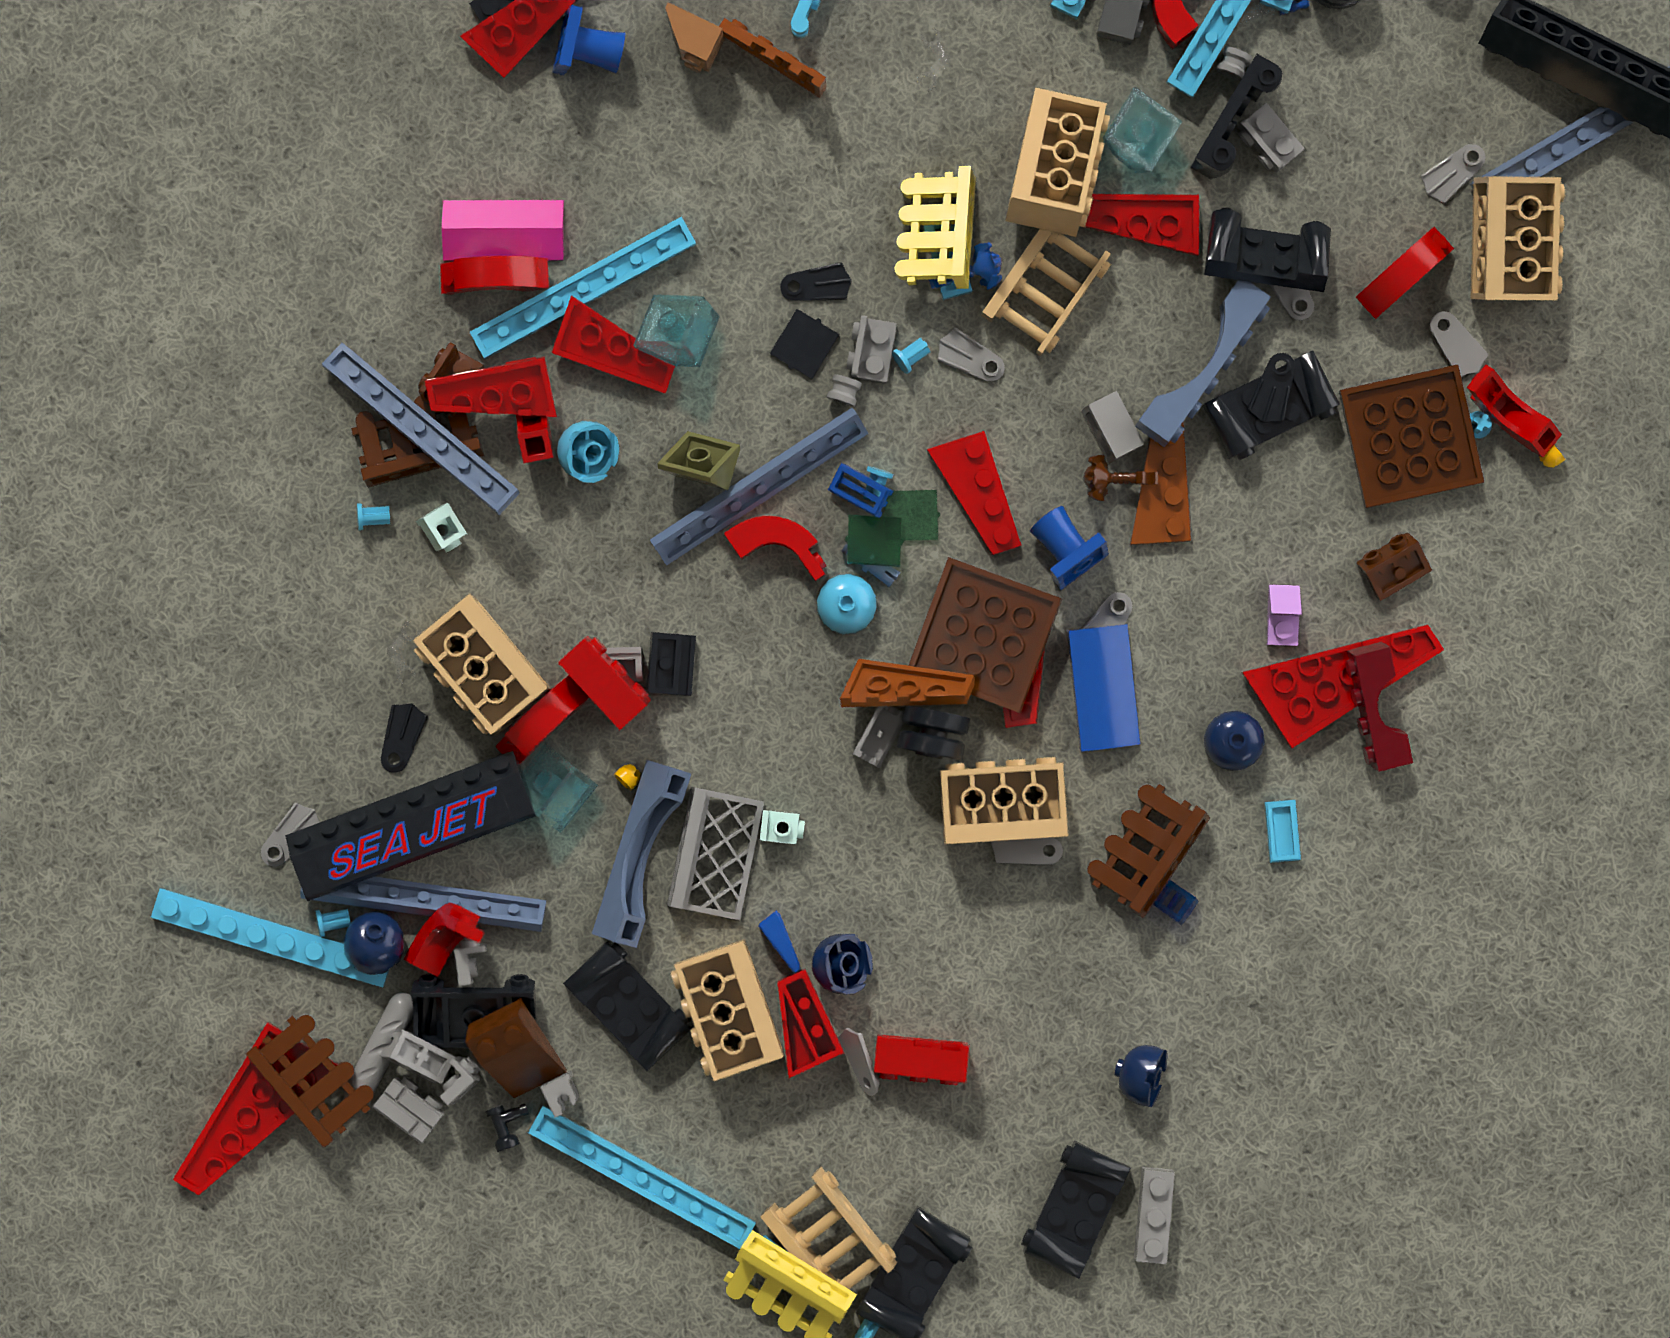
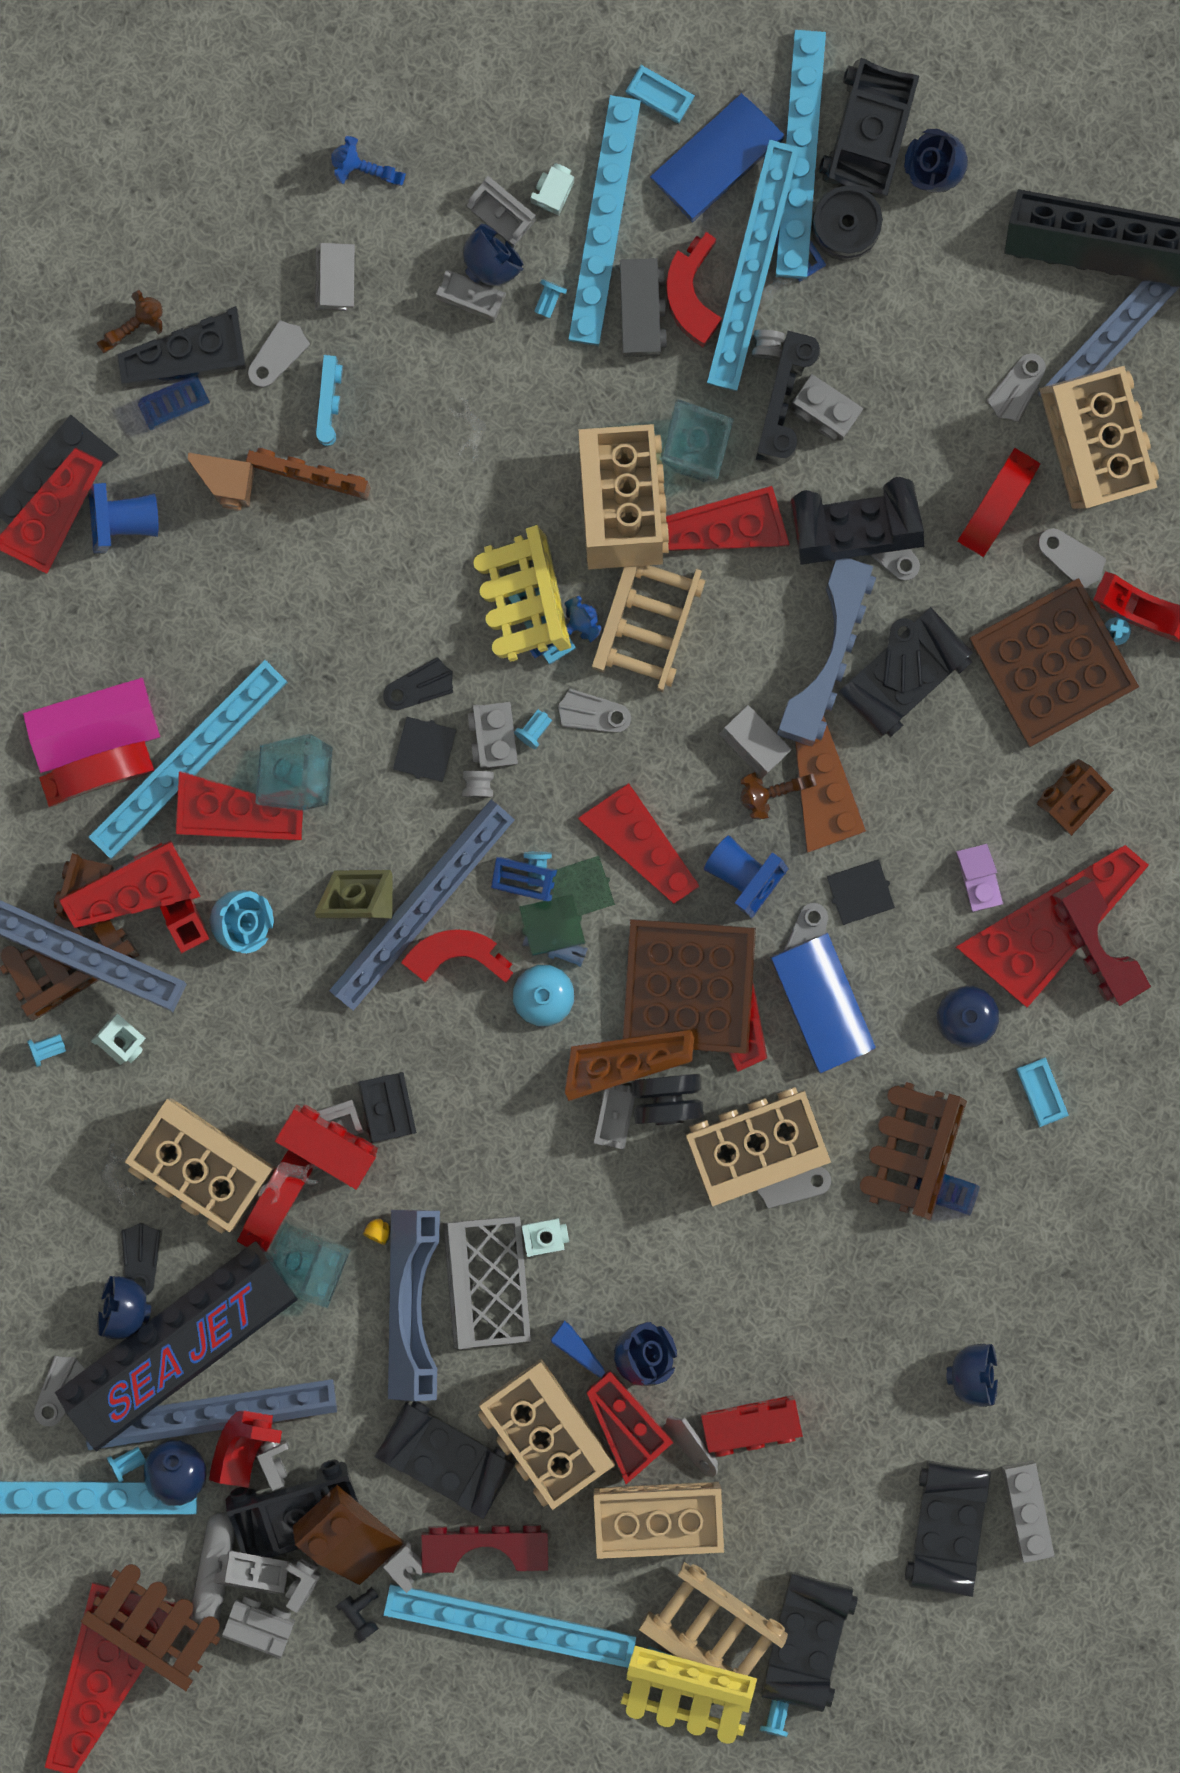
camera: 20 degrees left, 0 degrees up
(371, 777) = (123, 1308): none -> dark blue cylinder
(559, 692) = (283, 1171): none -> clear arm
(677, 1109) = (524, 1547): none -> dark red arch
(809, 1120) = (658, 1520): none -> tan brick
(1169, 595) = (860, 892): none -> black piece

